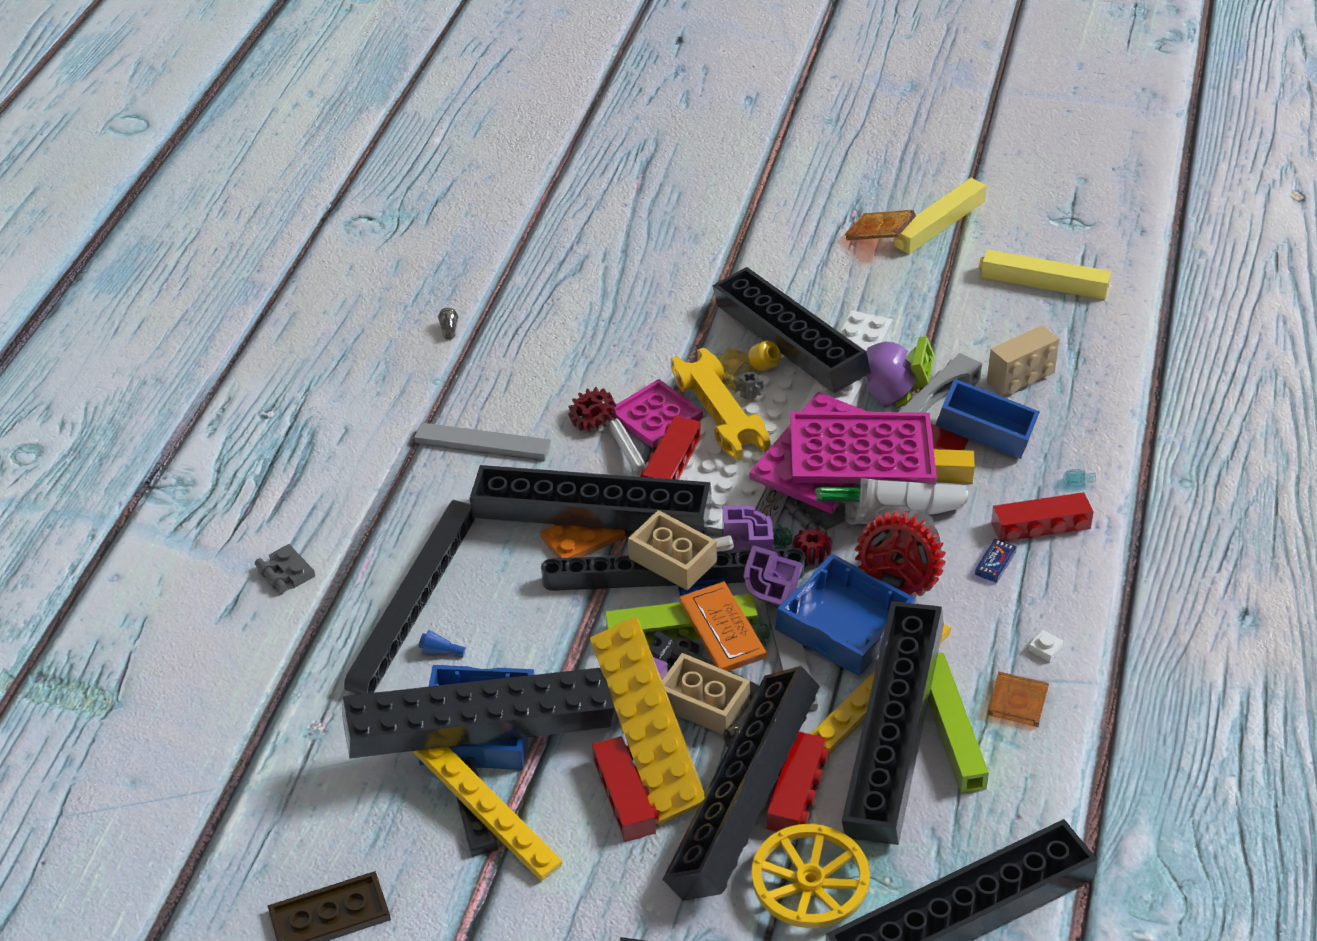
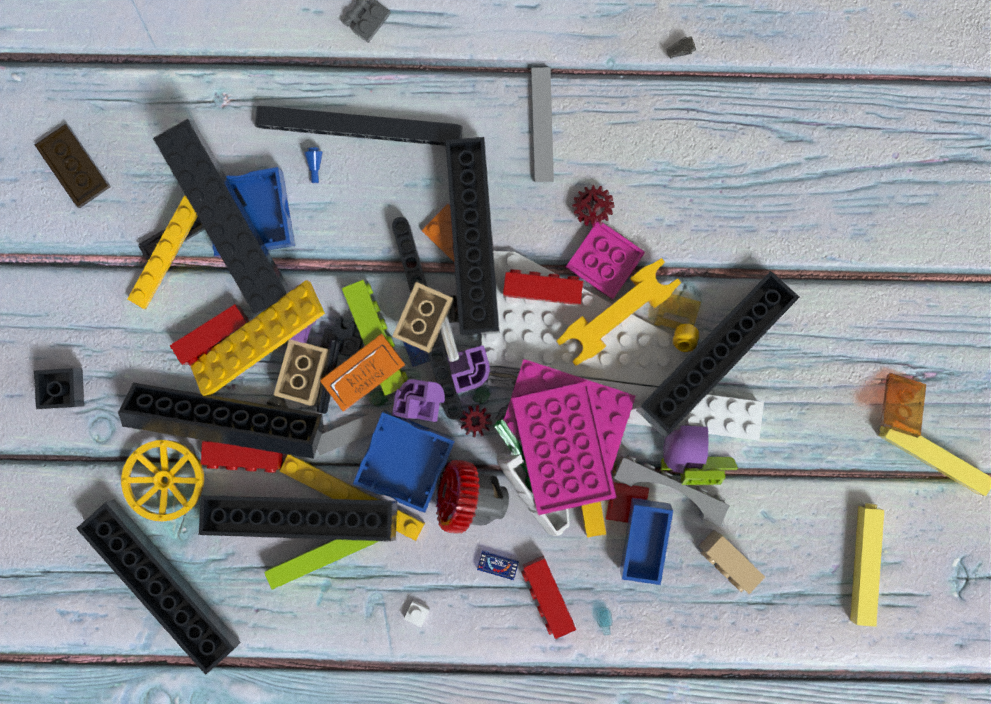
camera: 75 degrees right, 45 degrees up
(626, 445) = (556, 246): white axle -> none
(749, 385) = (649, 331): dark grey gear -> none
(1018, 699) = (359, 599): clear orange tile -> none

